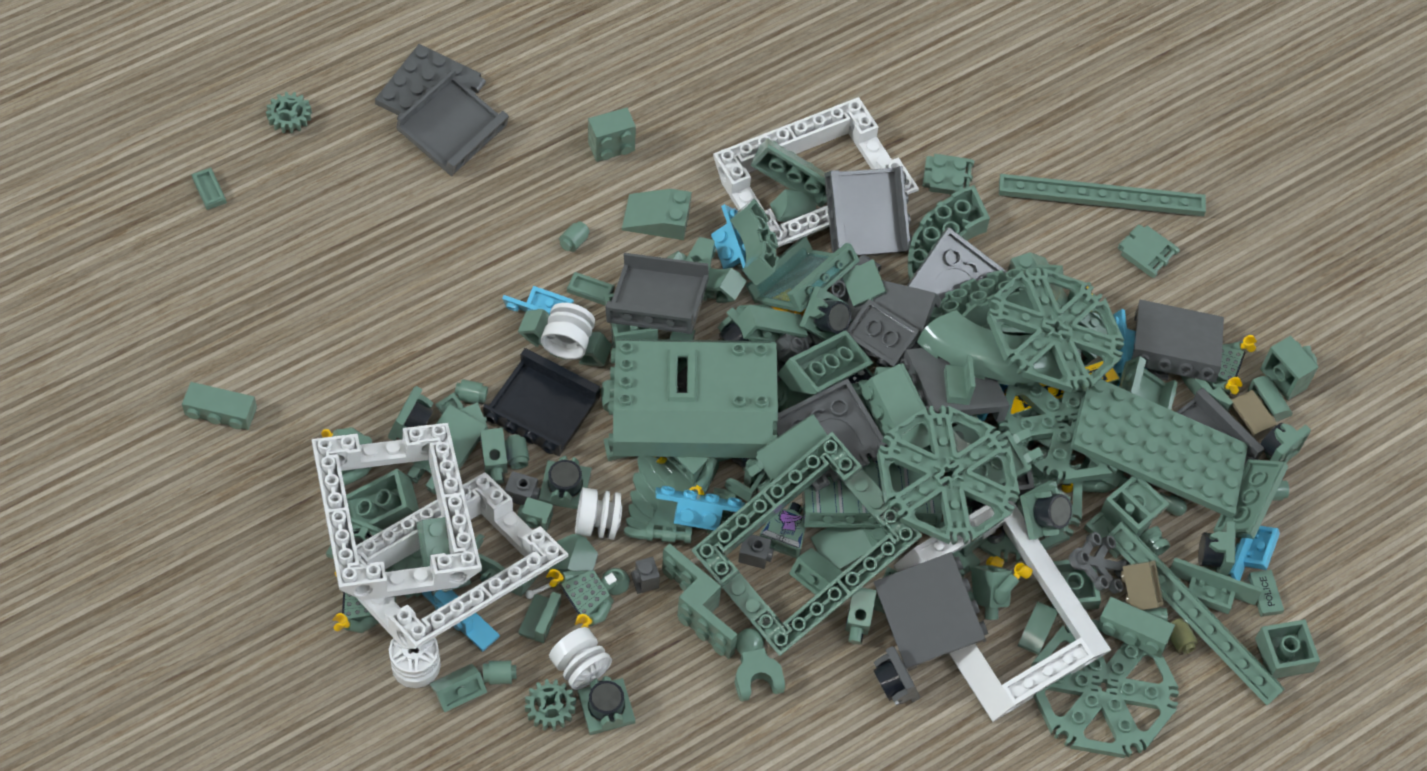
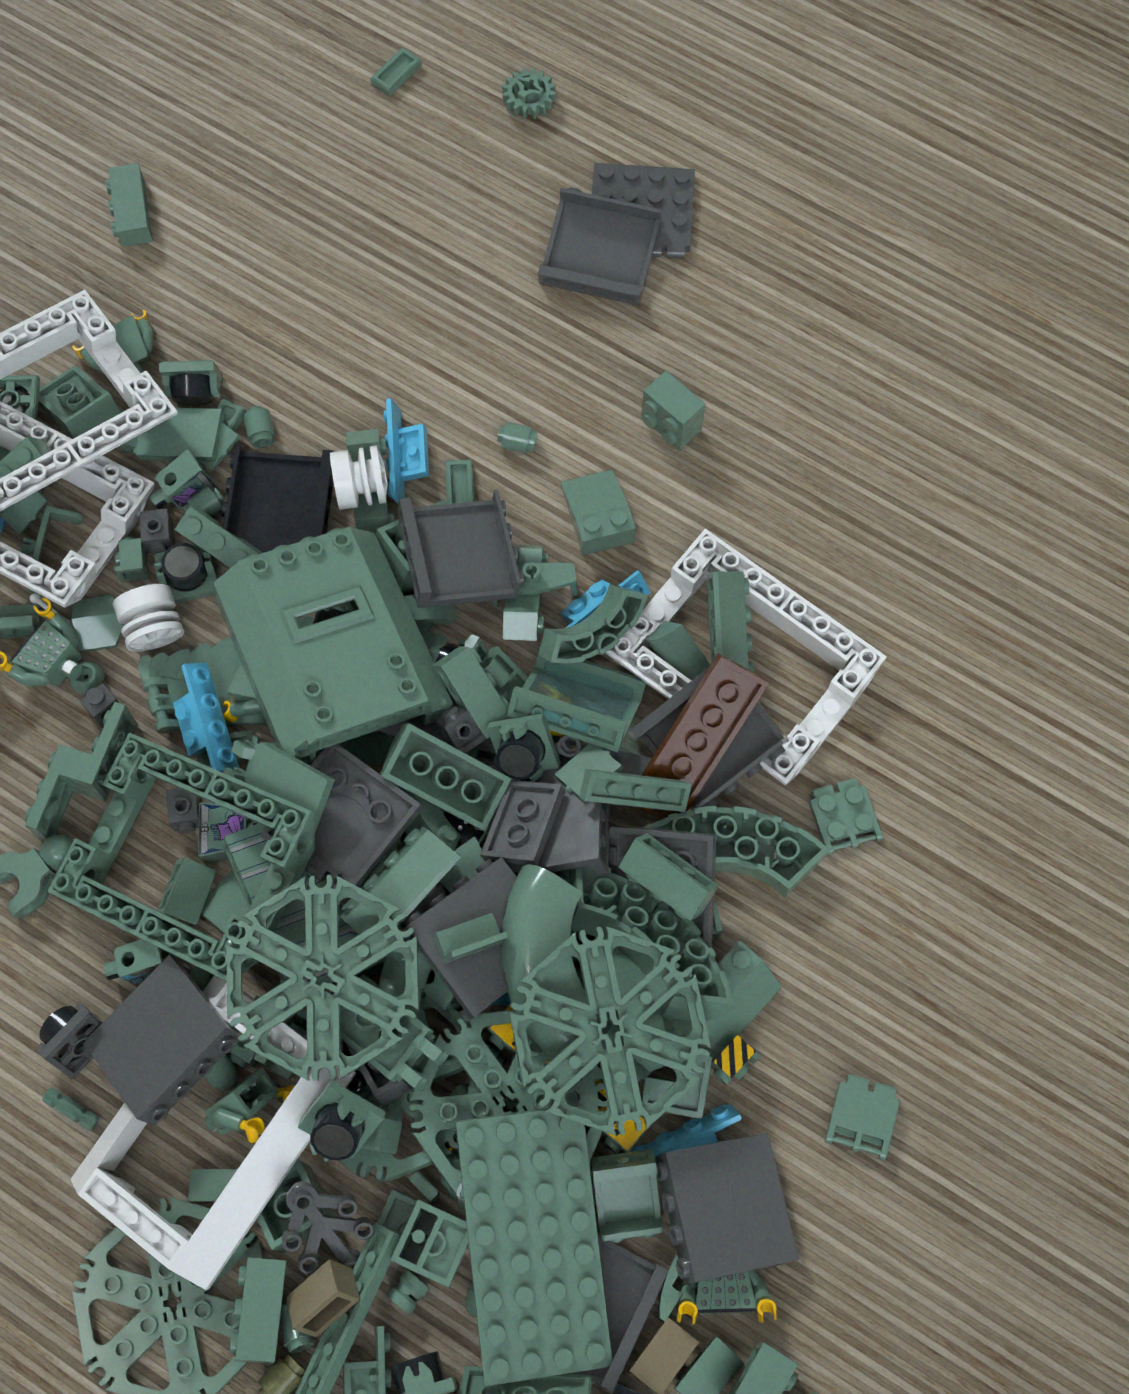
camera: 70 degrees right, 10 degrees up
(558, 445) = (213, 538): none -> sand green arch
(871, 216) = (706, 727): none -> plate
(891, 262) = (635, 790): none -> sand green plate
(942, 704) = (70, 1109): none -> sand green axle
(960, 267) = (668, 877): none -> sand green brick
(1092, 505) = (424, 1186): none -> sand green tile
(1102, 195) = (921, 1027): sand green plate -> none

